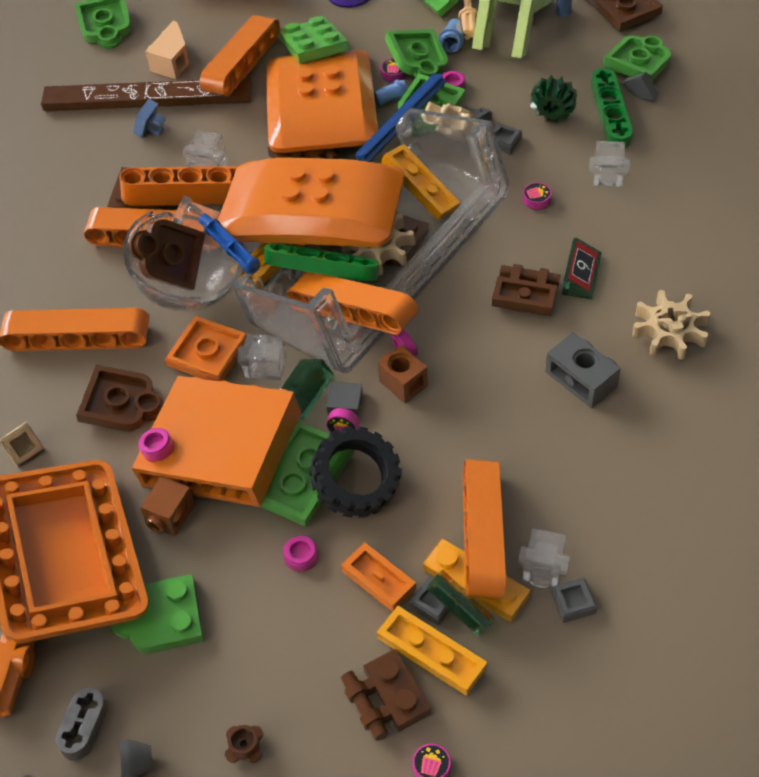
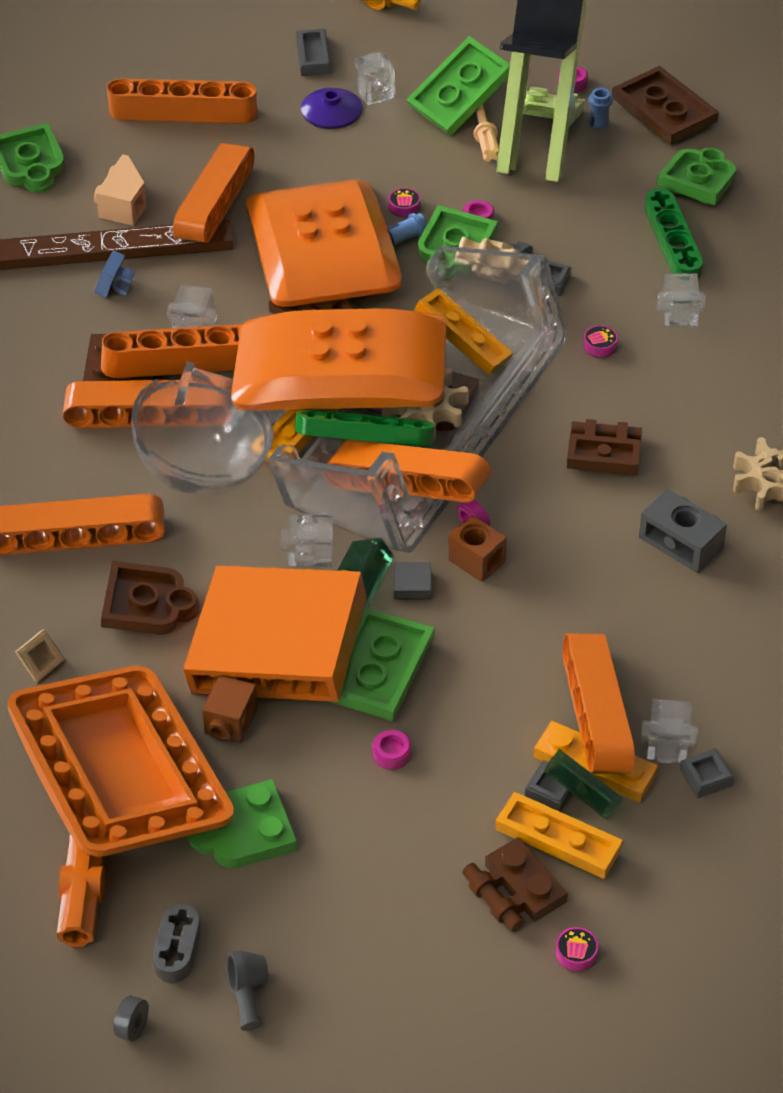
camera: 10 degrees left, 5 degrees down
(156, 444) = (208, 640): dark pink tile -> none
(168, 253) = (182, 427): reddish brown plate -> none
(206, 349) = (239, 536): orange plate -> none
(229, 243) = (252, 412): blue piece -> none
(239, 734) = (365, 936): reddish brown plate -> none
(313, 39) = (300, 170): bright green plate -> none
(342, 418) = (417, 605): dark pink tile -> none
(369, 444) = (433, 686): black tyre -> none
(378, 577) = (486, 765): orange plate -> none
(388, 130) = (417, 269): blue axle -> none
(417, 51) = (431, 179): bright green plate -> none
(452, 36) = (470, 159): medium blue cone -> none
(553, 98) = (605, 227): dark green gear -> none
(581, 270) = (665, 422): slope -> none
(641, 86) = (705, 208): dark grey tile -> none

